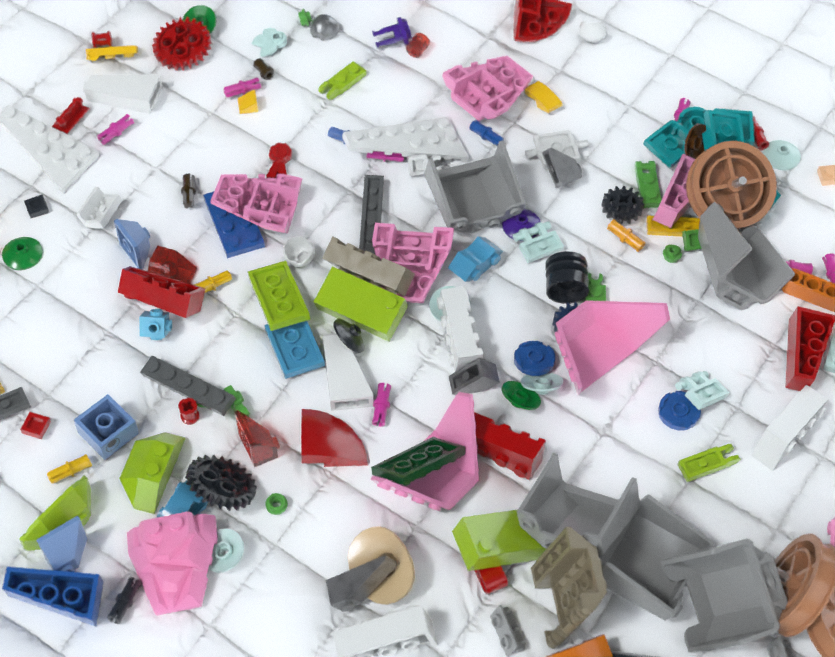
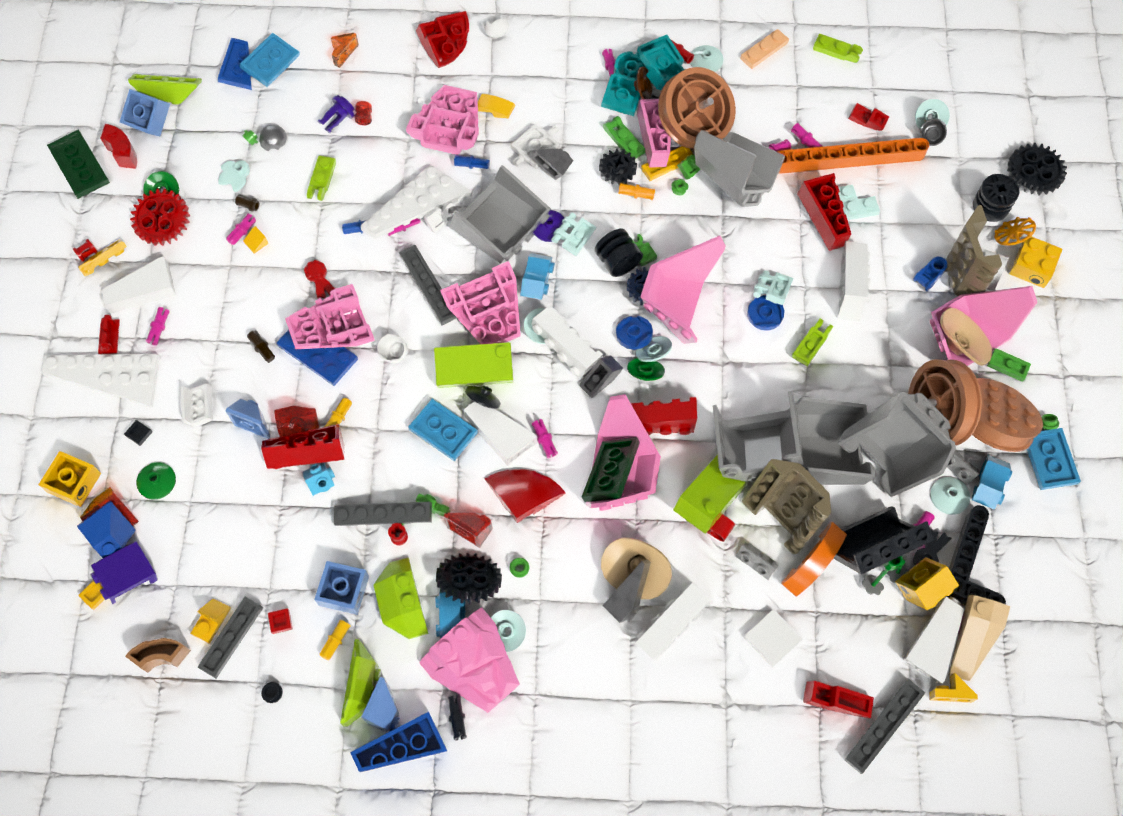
camera: 30 degrees left, 10 degrees up
(278, 295) = (402, 395): lime plate -> none
(368, 266) = (462, 330): wedge -> none

